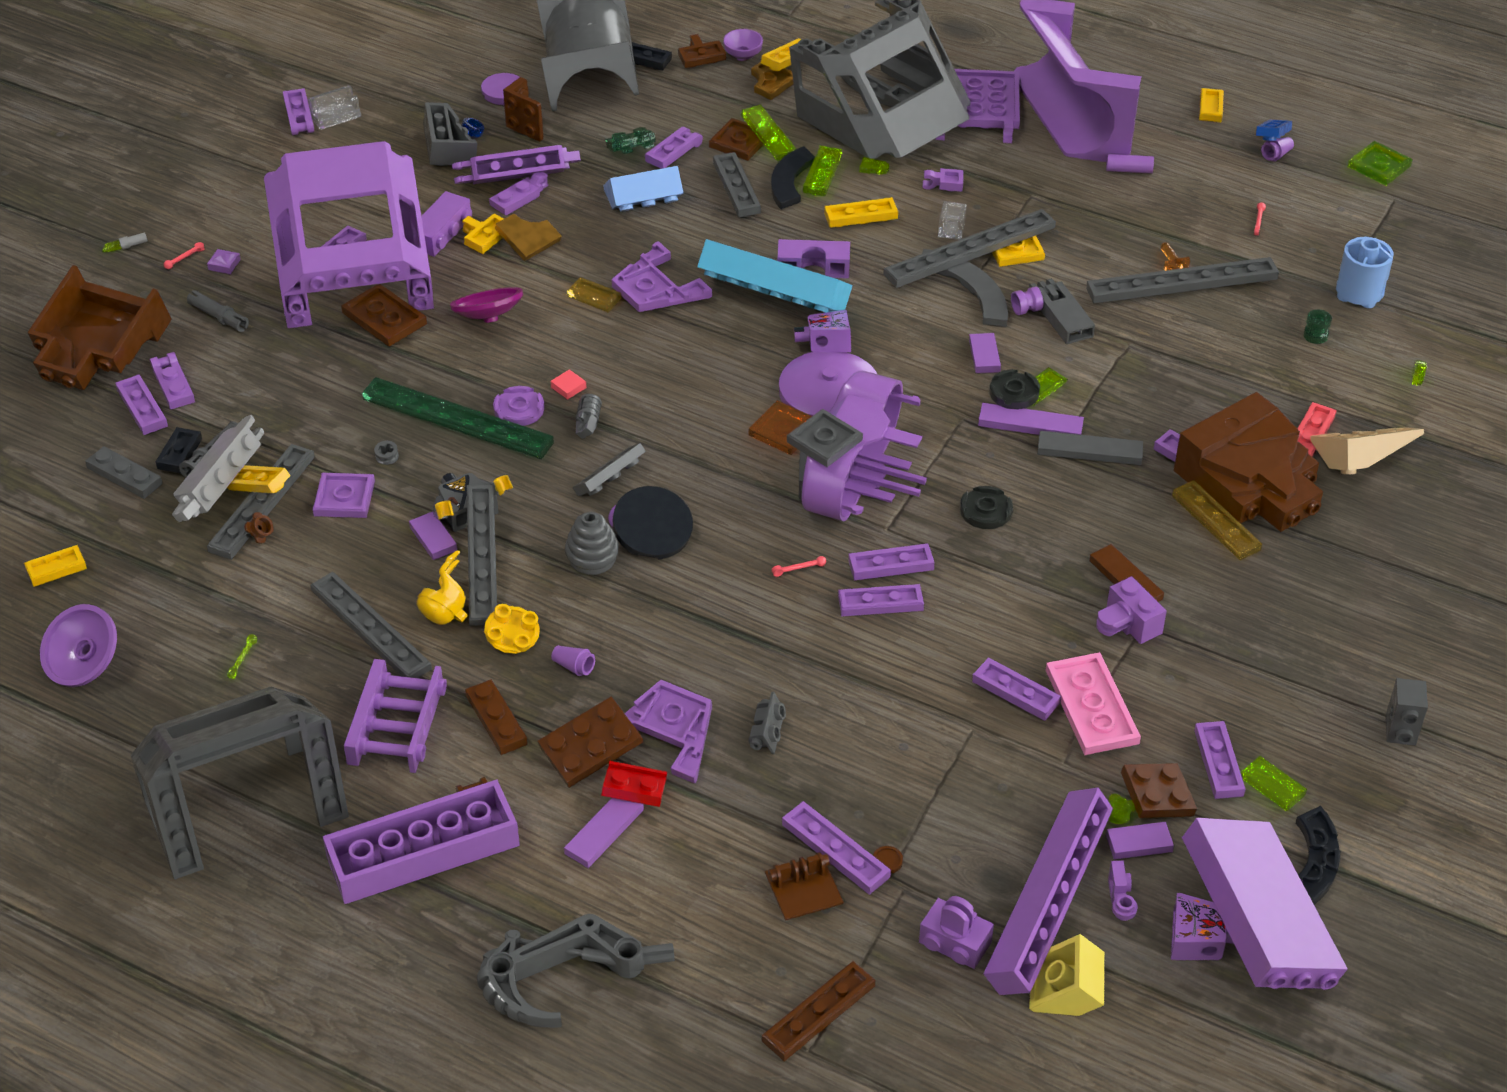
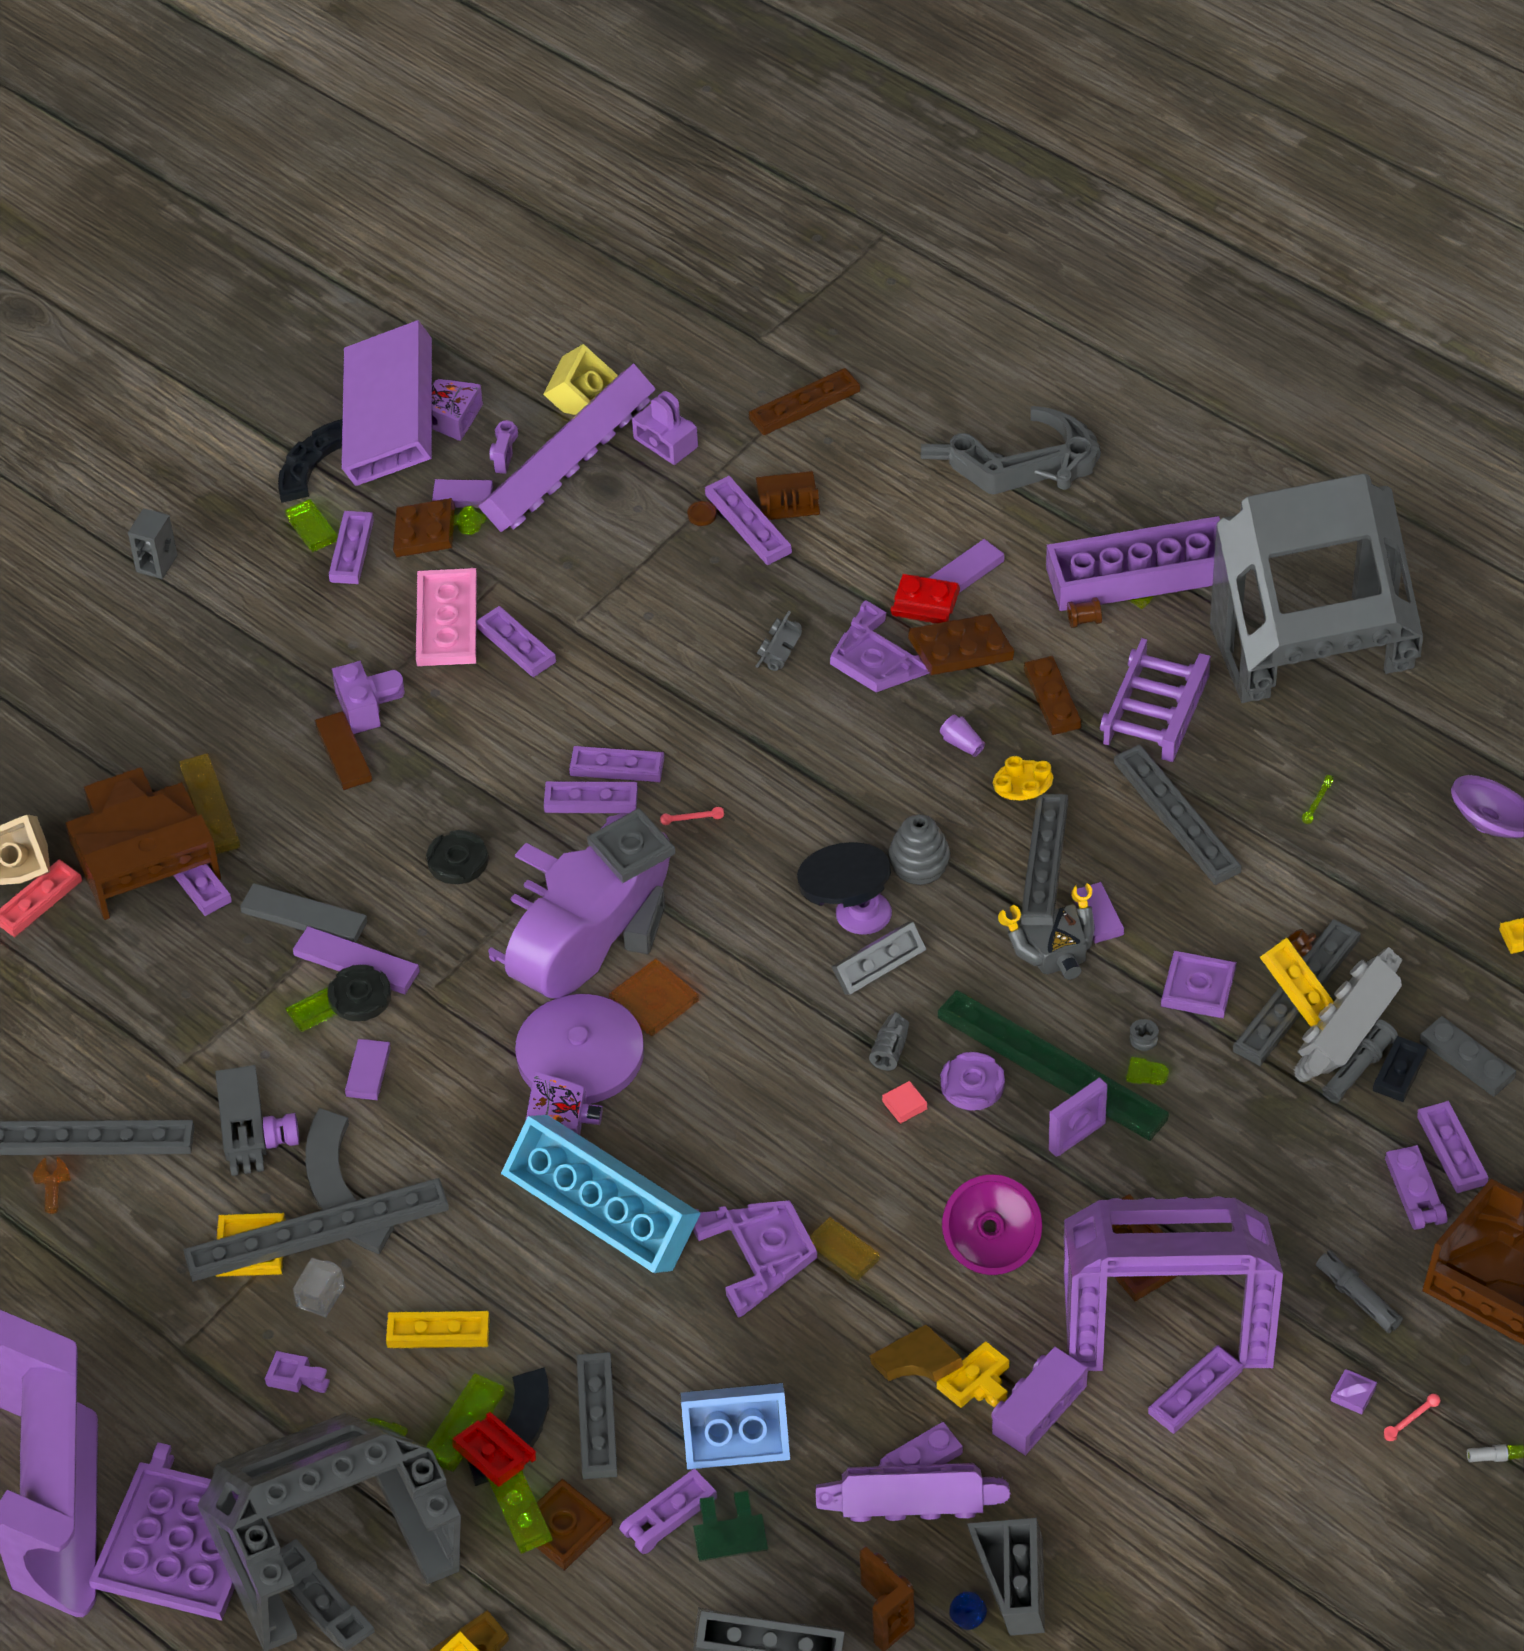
camera: 165 degrees left, 5 degrees up
(384, 431) = (1142, 1070): none -> clear neon green piece
(431, 366) = (1077, 1117): none -> medium lavender tile
(448, 601) = (1094, 811): yellow hair -> none
(795, 148) = (494, 1449): none -> red plate
(830, 255) = (557, 1258): medium lavender arch -> none

